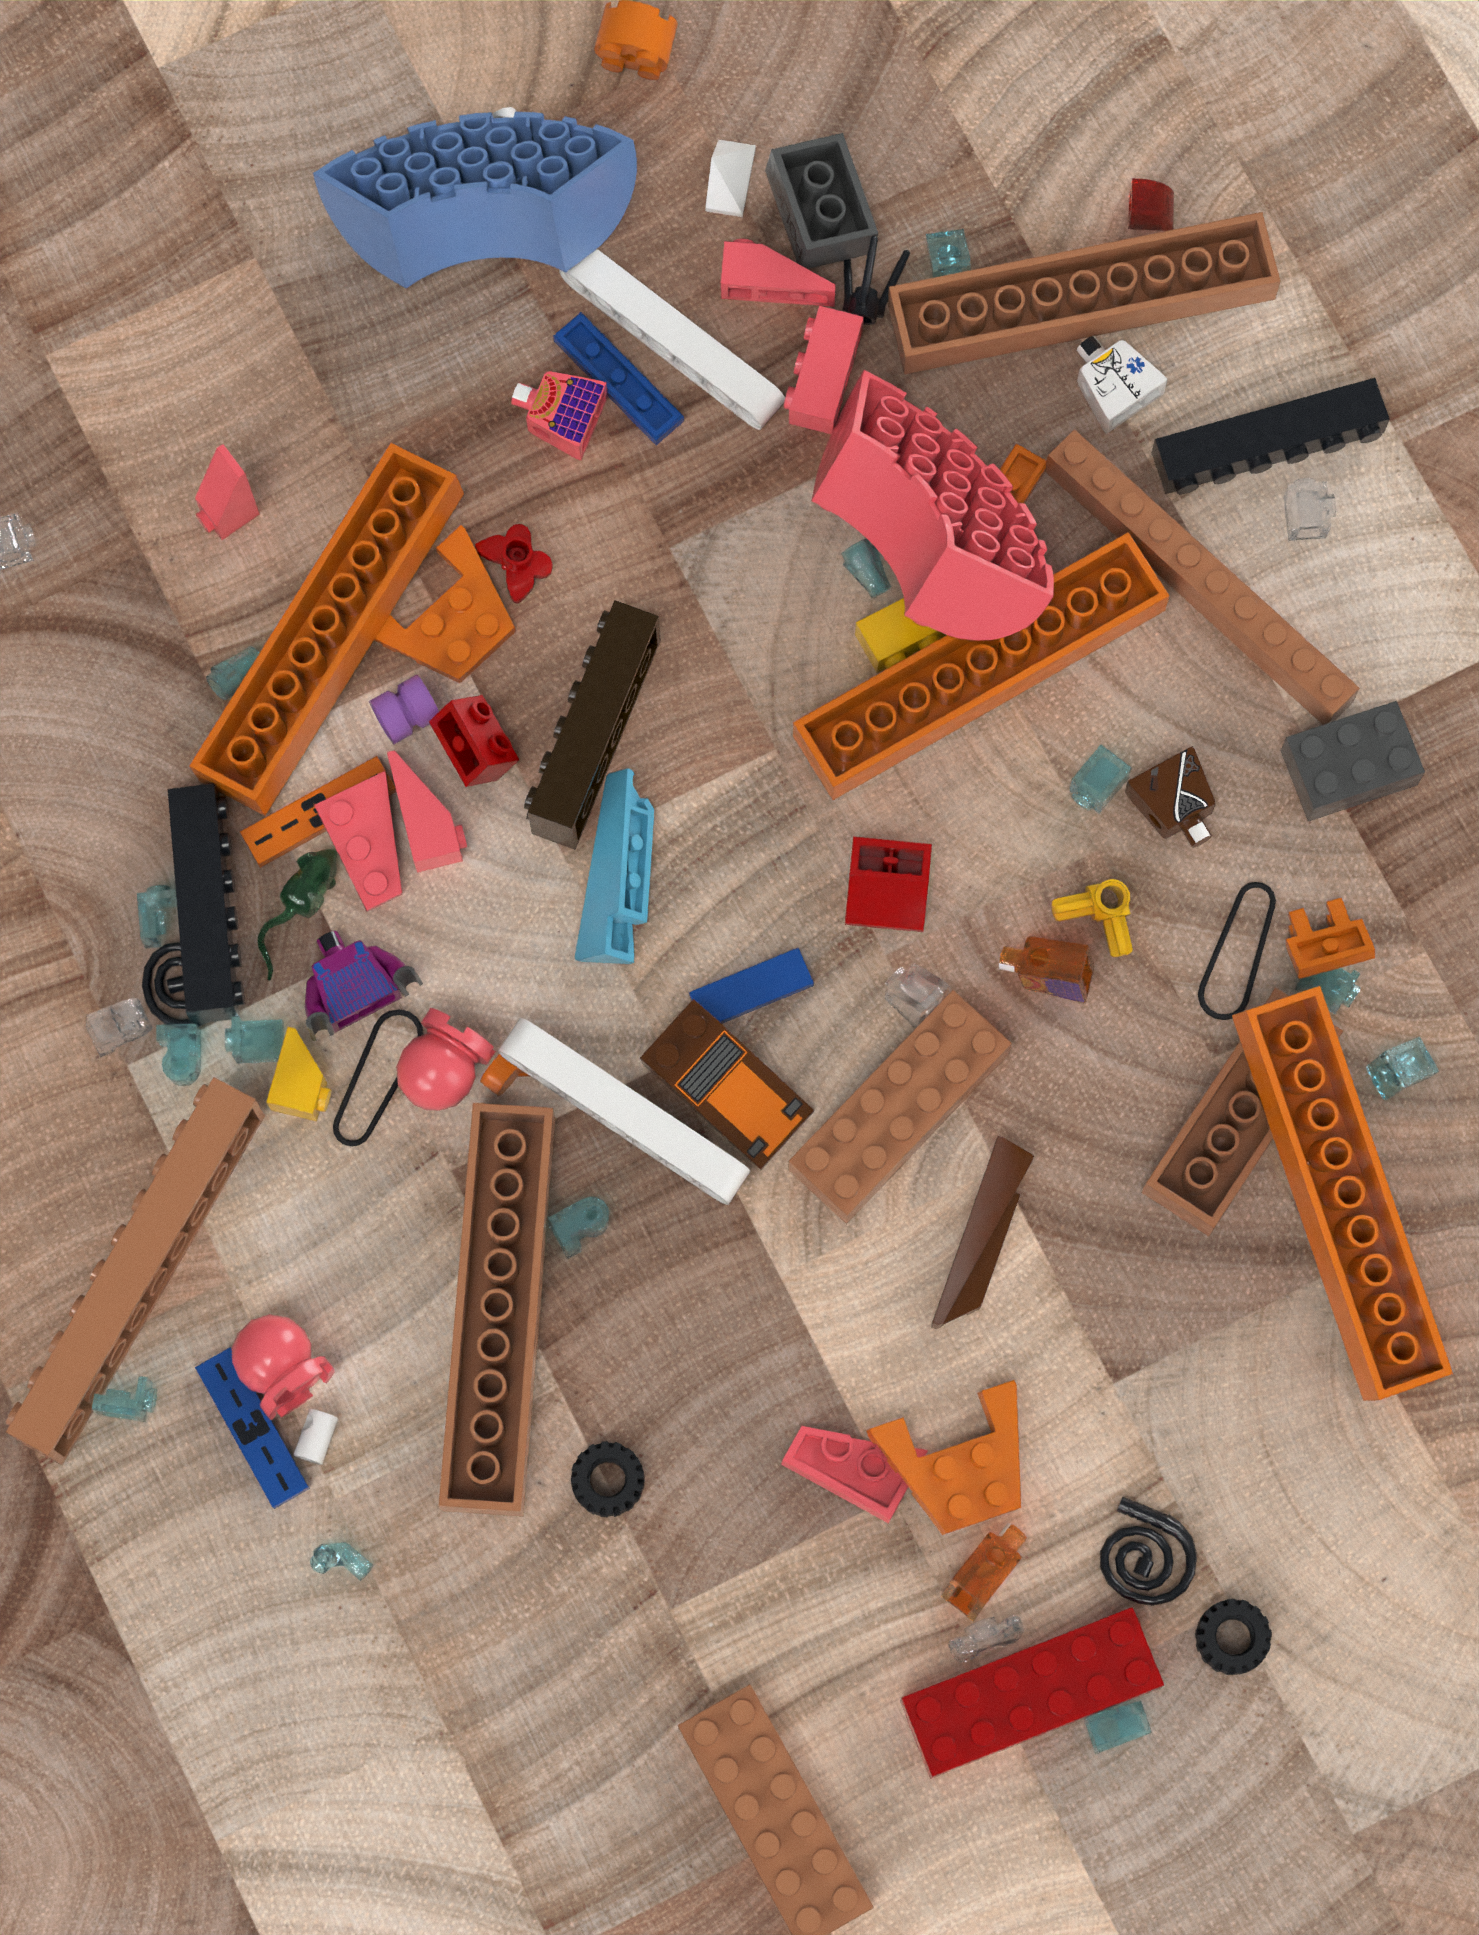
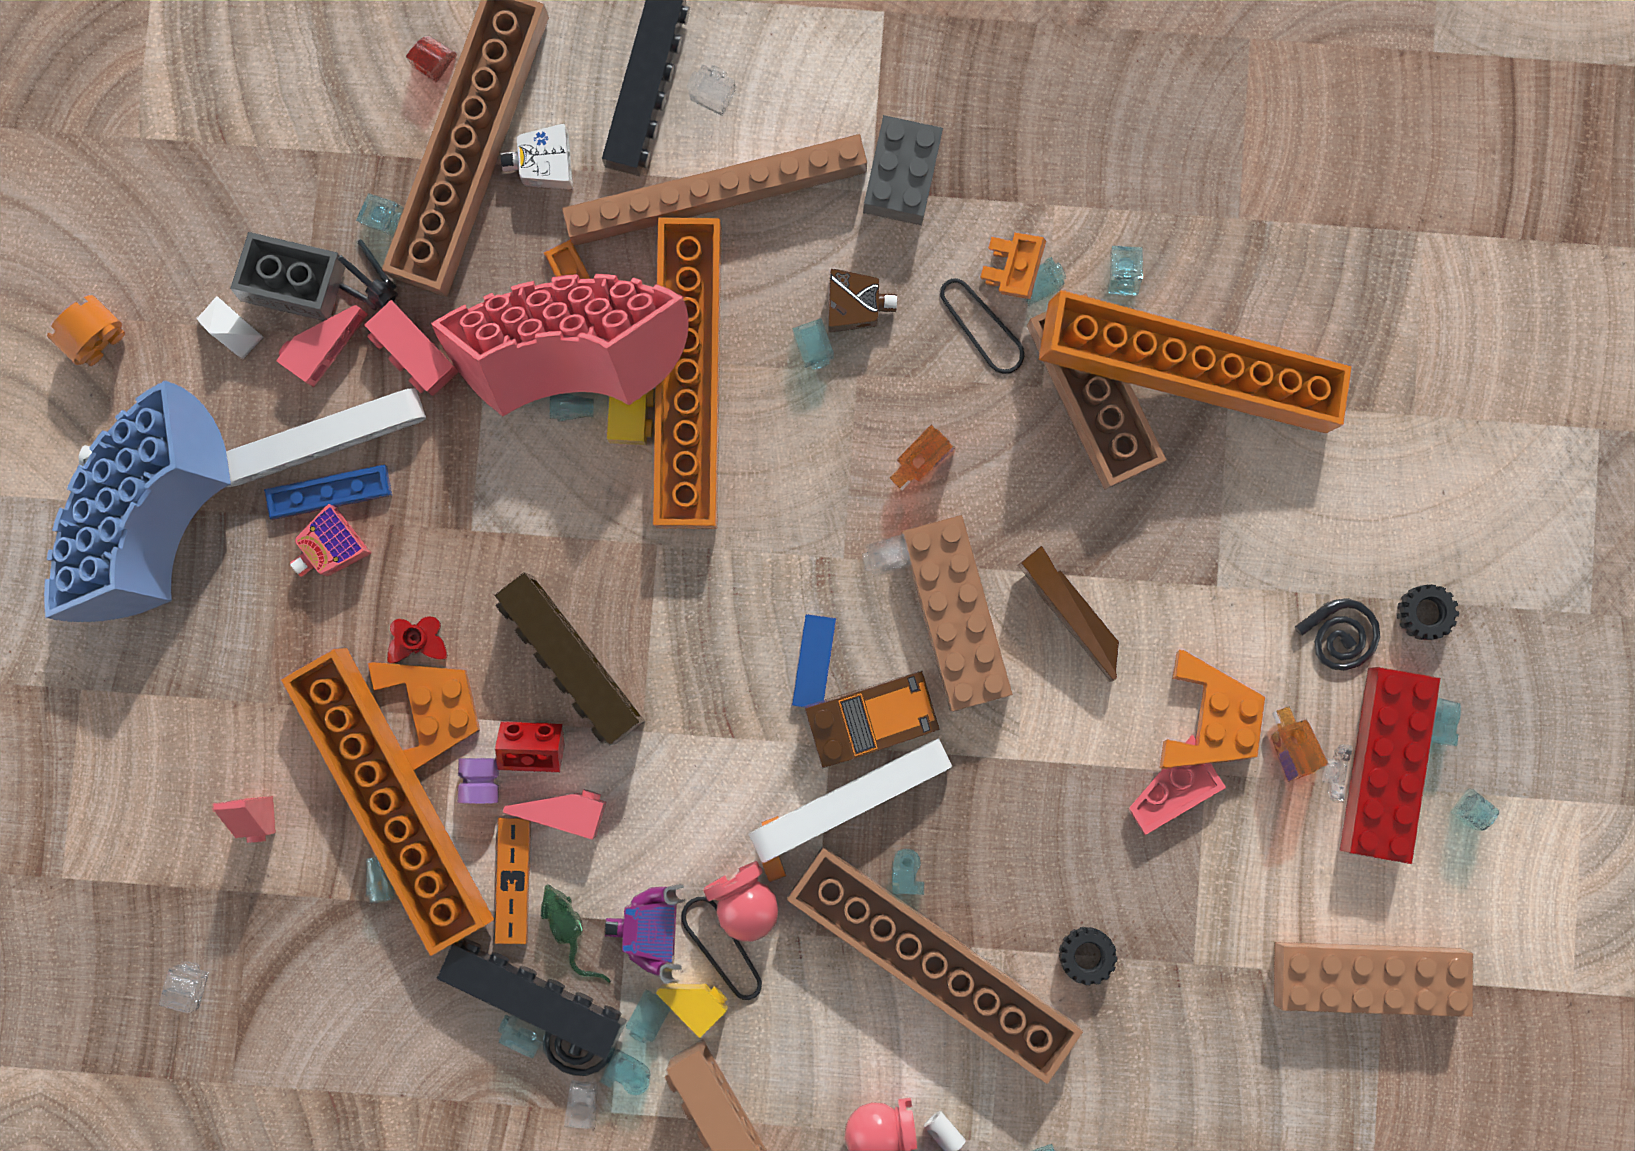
camera: 60 degrees left, 10 degrees up
(364, 839) = (551, 861): coral wing -> none
(618, 874) = (680, 703): medium azure wedge -> none
(888, 884) = (801, 528): red slope -> none
(1040, 1825) = (1475, 811): none -> clear light blue leg
(1090, 904) = (894, 403): yellow axle -> none

